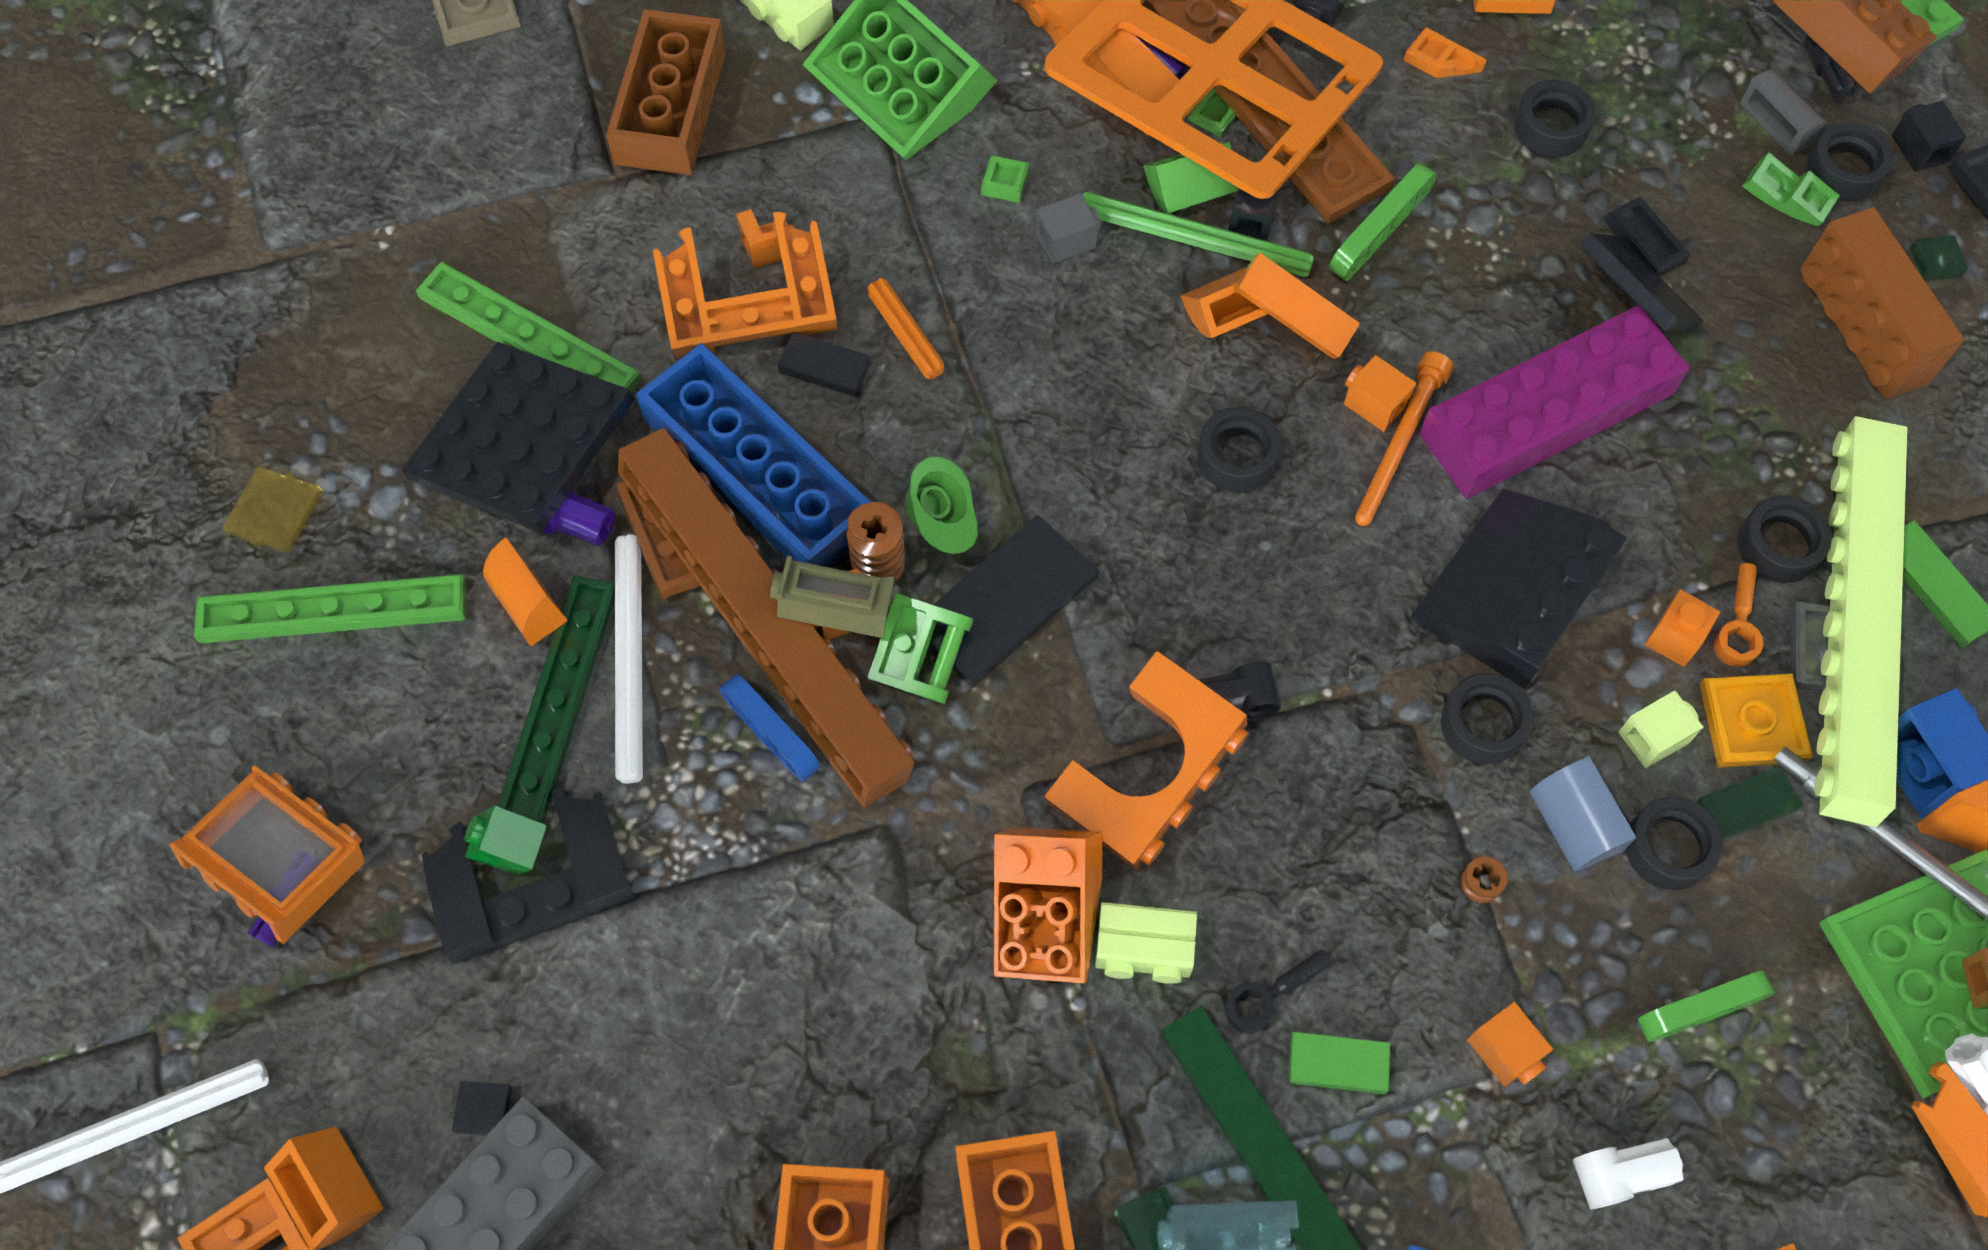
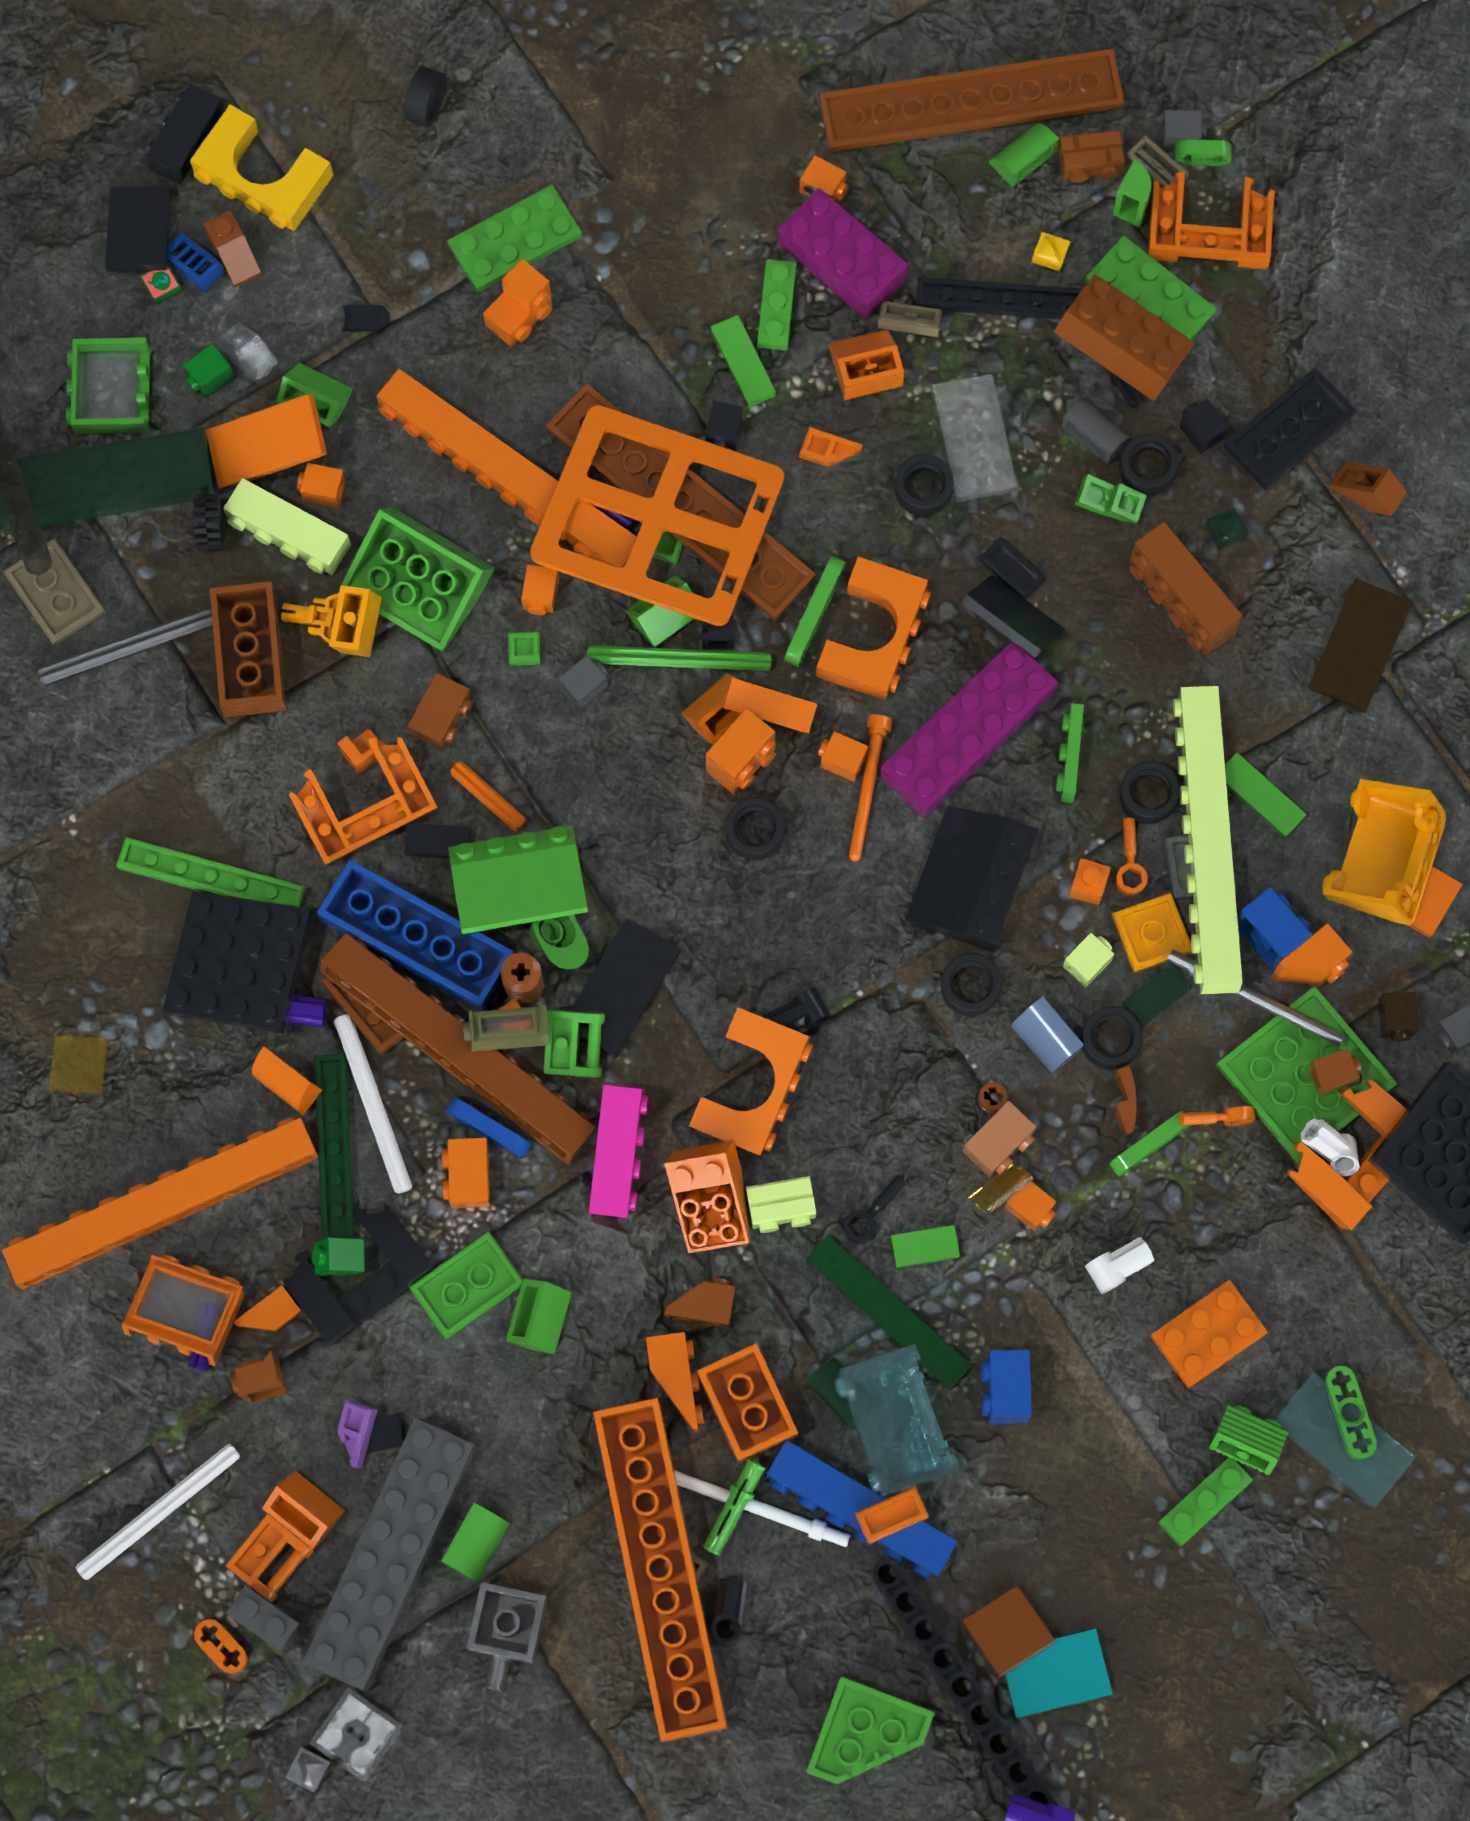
camera: 15 degrees left, 10 degrees up
(295, 705) = (159, 1203): none -> orange brick
(330, 608) = (151, 1126): bright green tile -> none
(330, 976) = (259, 1379): none -> dark orange window
(389, 893) = (271, 1312): none -> orange tile
(441, 1092) = (356, 1429): none -> medium lavender tile
(521, 62) = (125, 646): none -> dark grey axle
(670, 934) = (467, 1285): none -> bright green tile
(721, 779) = (468, 1173): none -> orange brick
(754, 1003) = (538, 1316): none -> bright green brick
(795, 89) = (343, 622): none -> light orange brick
(877, 218) = (440, 712): none -> dark orange brick
(909, 420) = (517, 879): none -> bright green slope
(920, 1131) = (670, 1368): none -> orange slope
(935, 801) = (617, 1150): none -> dark pink wedge
(995, 1054) = (705, 1304): none -> dark orange slope
(1045, 116) = (539, 590): none -> orange brick
(1246, 348) = (741, 752): none -> orange brick
(1446, 304) = (876, 670): none -> orange arch
(1472, 1008) = (1000, 1188): none -> clear yellow piece
(1484, 939) = (1000, 1140): none -> nougat brick
(1630, 84) = (974, 437): none -> clear plate
(1679, 948) = (1127, 1109): none -> dark orange slope
(1684, 464) = (1069, 753): none -> bright green plate
(1834, 1000) = (1231, 1116): none -> orange piece

